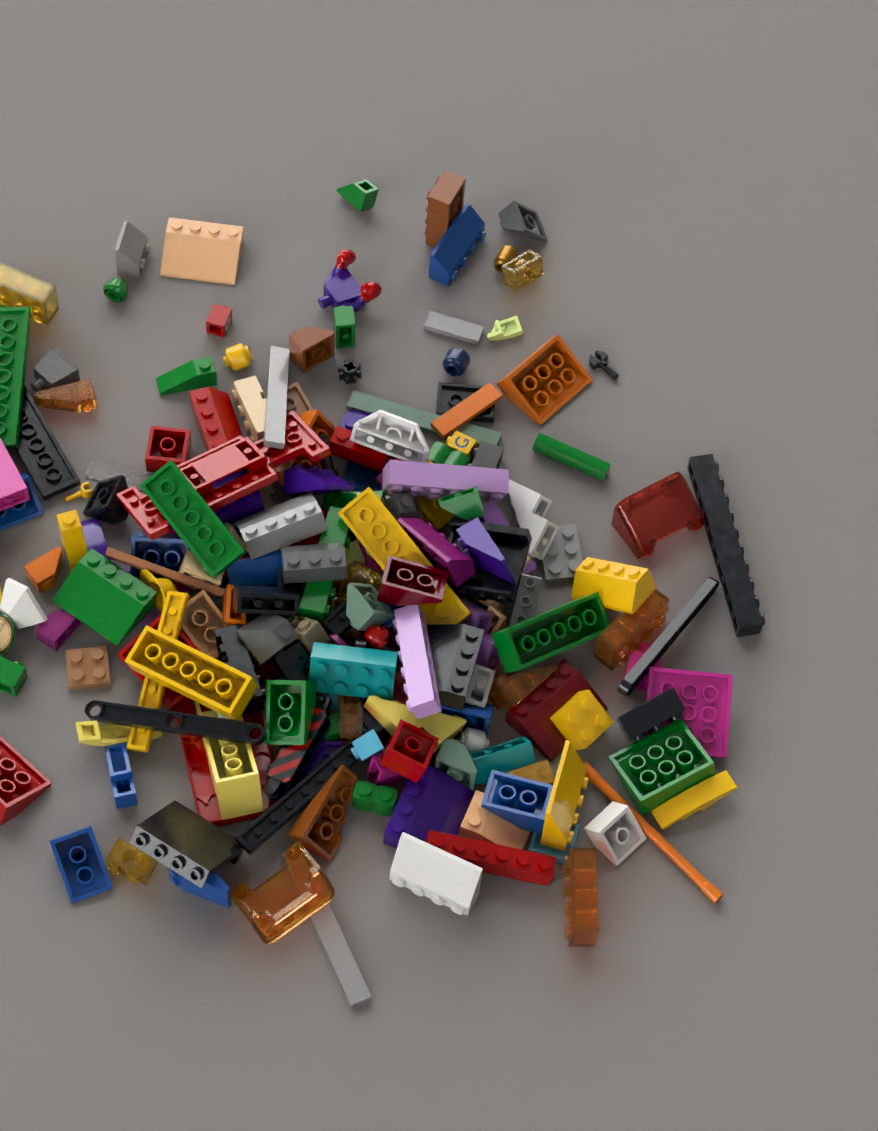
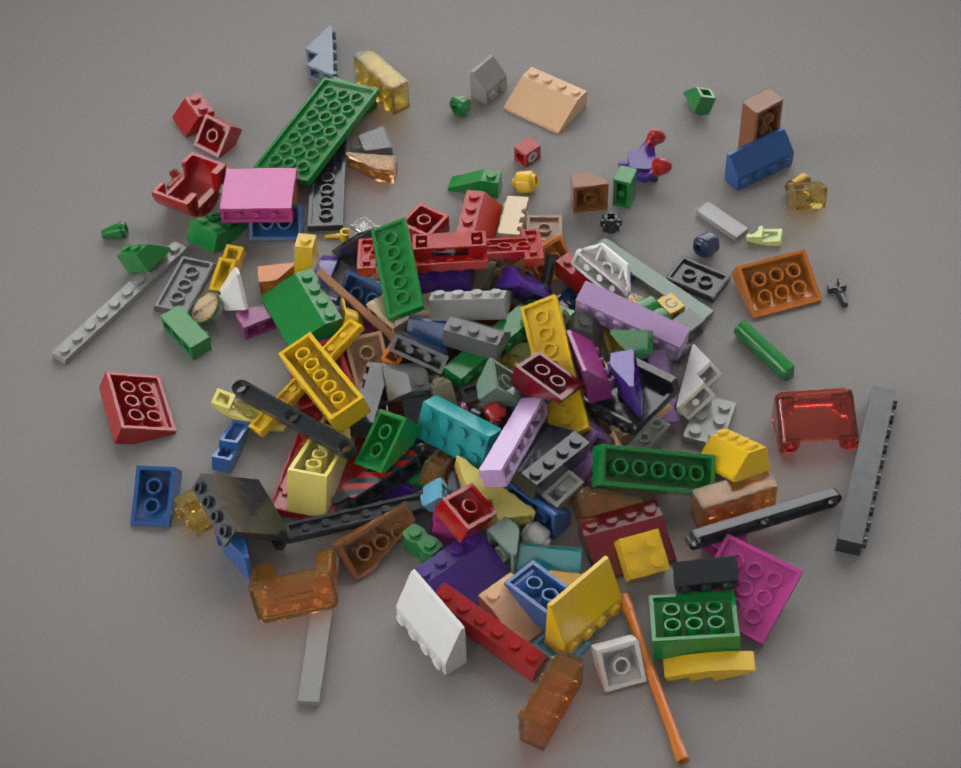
camera: 35 degrees right, 10 degrees down
(88, 668) = (259, 360): medium nougat plate -> none
(276, 398) = (531, 215): tile -> none
(466, 410) = (692, 282): orange tile -> none
(522, 221) = (830, 162): dark grey slope -> none

